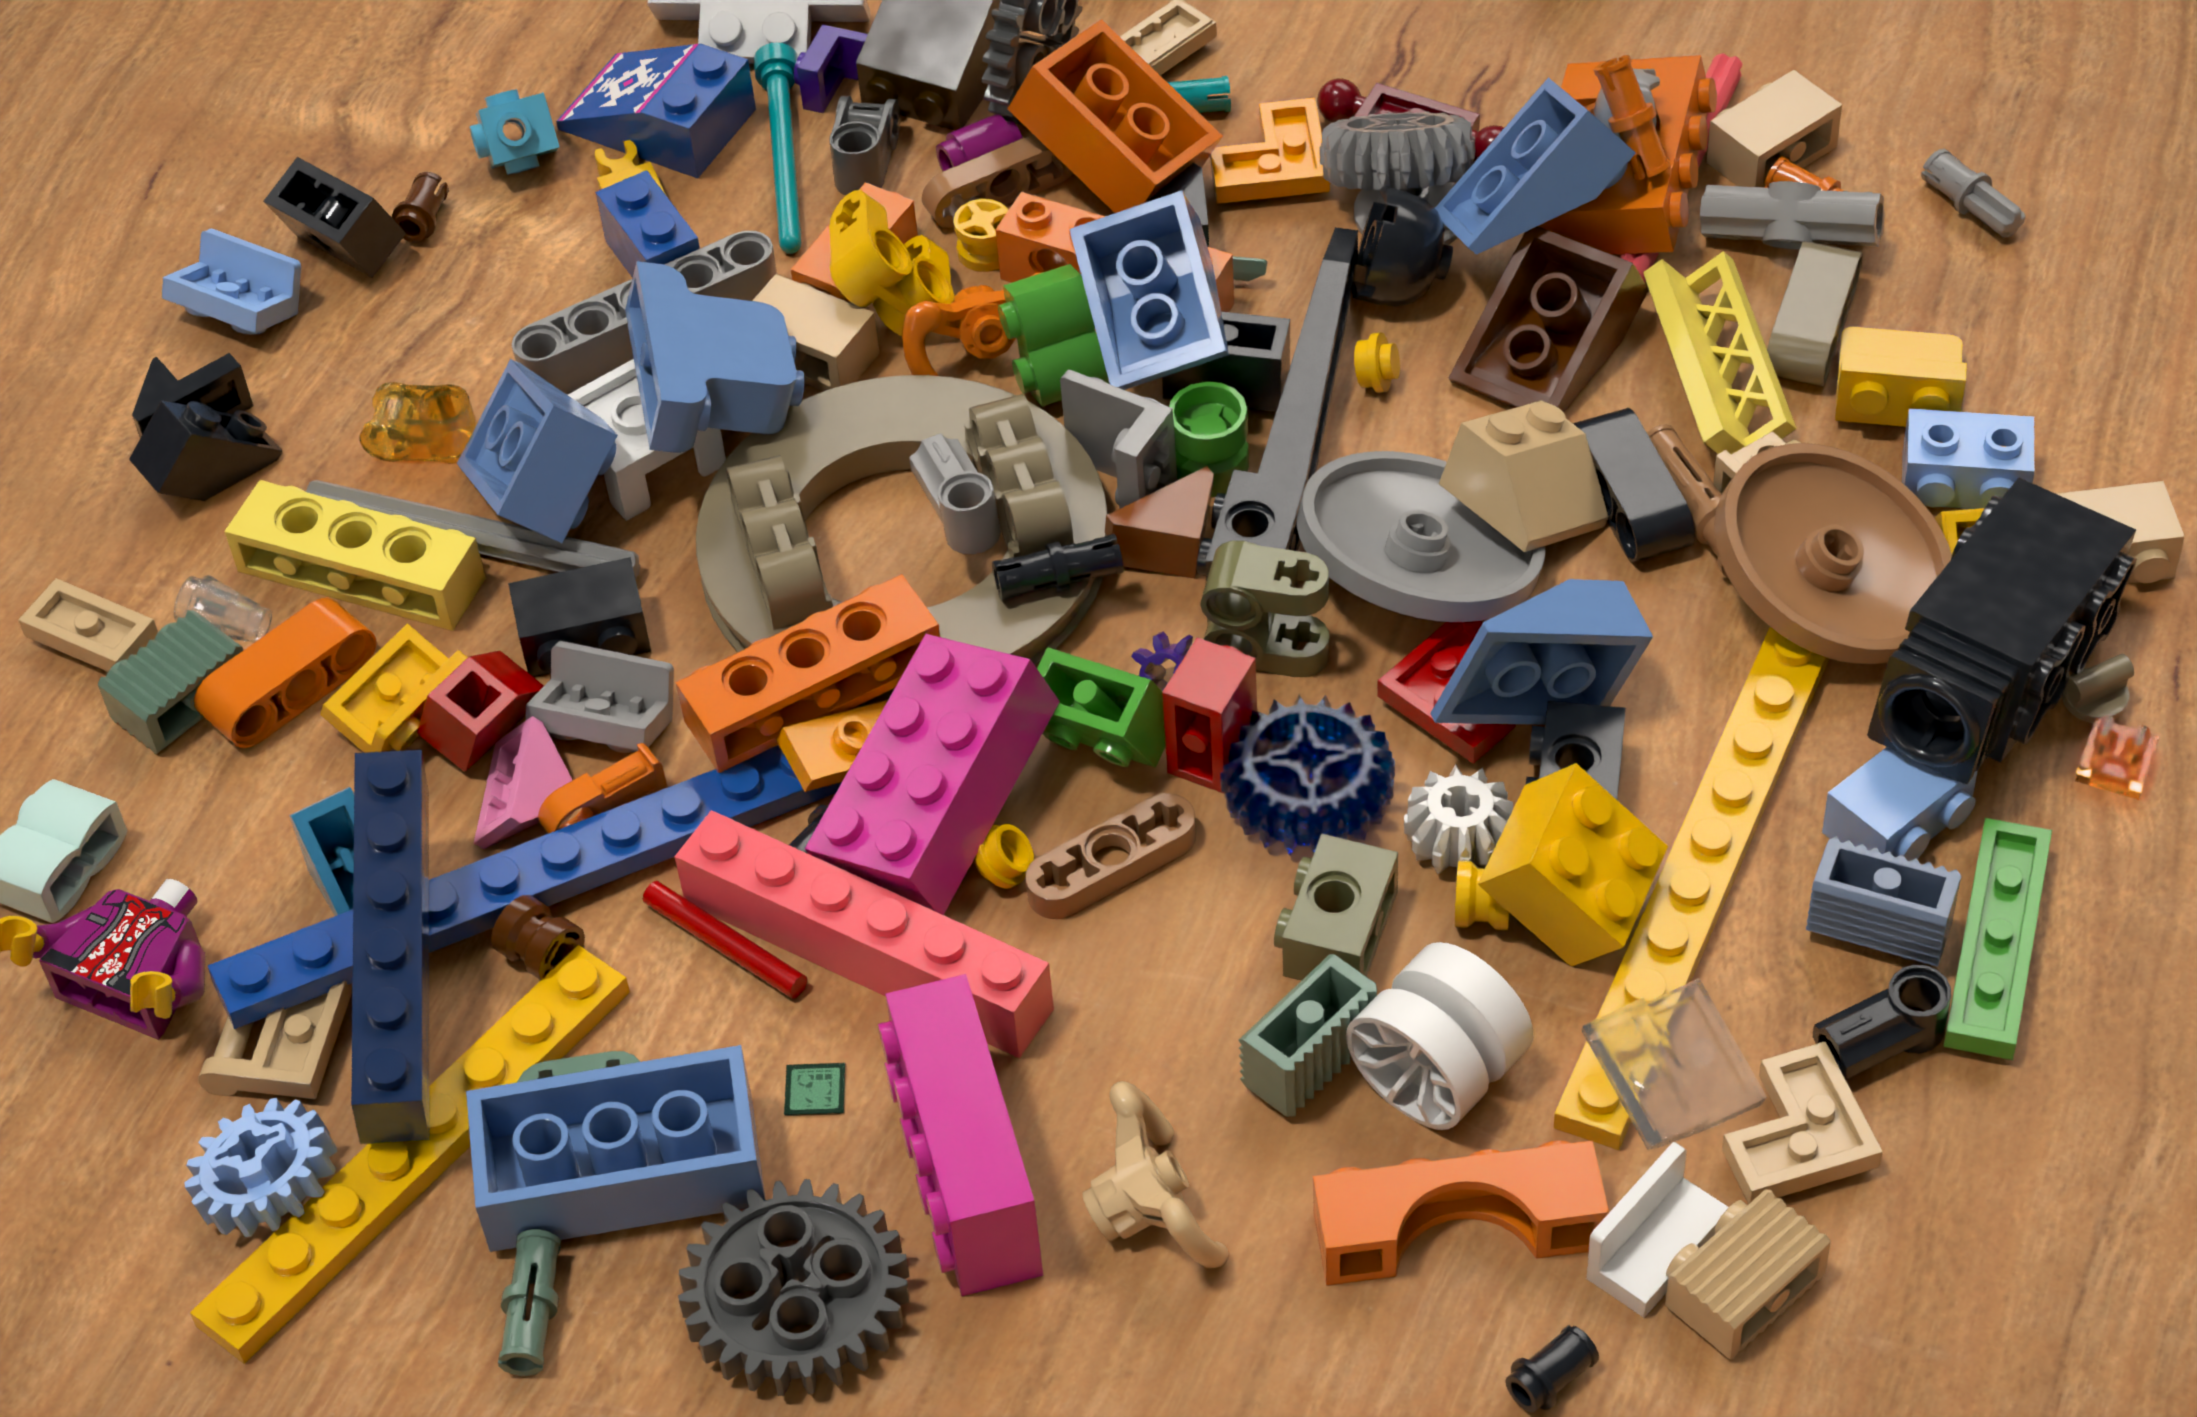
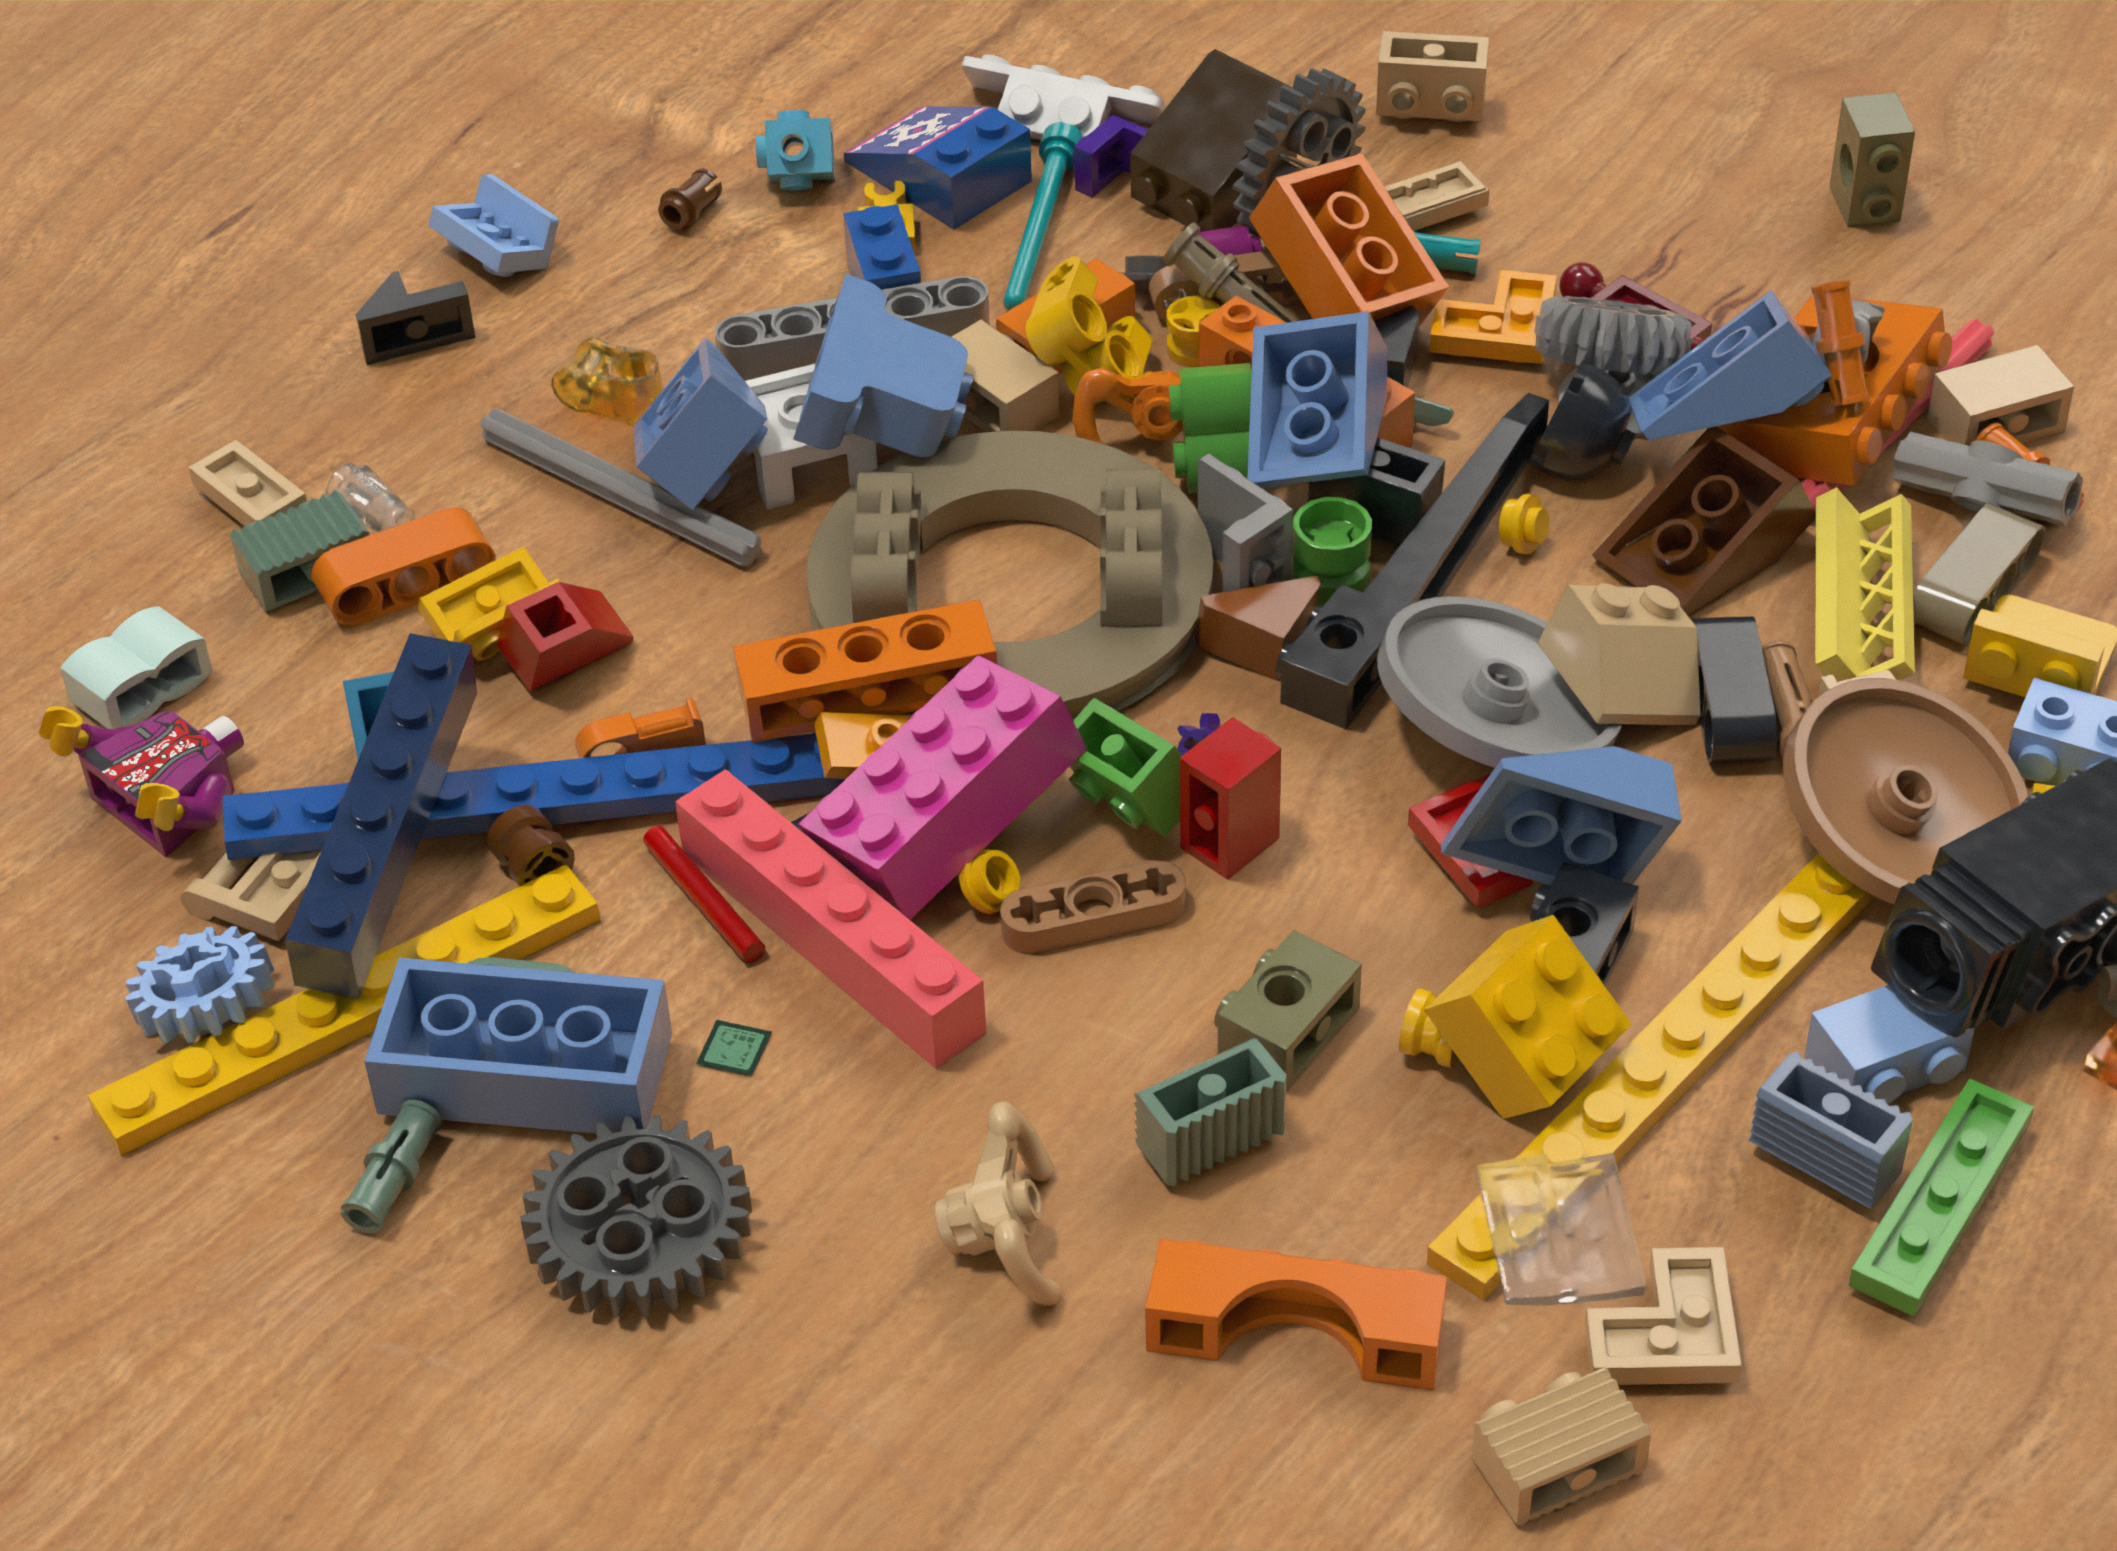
camera: 15 degrees right, 5 degrees down
(200, 450) = (408, 361): black slope -> none
(335, 217) = (605, 188): black brick -> none
(356, 554) = (508, 480): light yellow brick -> none
(520, 778) = (581, 698): bright pink slope -> none
(582, 607) = (684, 579): black brick -> none
(604, 697) = (675, 653): light grey bracket -> none
(863, 142) = (1115, 225): dark grey piece -> none
(911, 180) = (1141, 269): none -> dark grey plate
(957, 494) = (1067, 546): light grey piece -> none
(960, 1136) = (838, 1117): dark pink brick -> none
(998, 176) = (1217, 272): none -> dark tan pin
(1057, 566) = (1137, 632): black pin -> none
(1259, 611) = (1306, 706): olive piece -> none
(1343, 757) = (1309, 876): clear blue gear -> none
(1440, 1035) = (1335, 1141): white wheel -> none
(1456, 818) = (1433, 947): white gear -> none
(1540, 1378) = (1330, 1484): black pin -> none
(1647, 1231) = (1473, 1371): white panel -> none
(1885, 1024) = (1796, 1246): black piece -> none

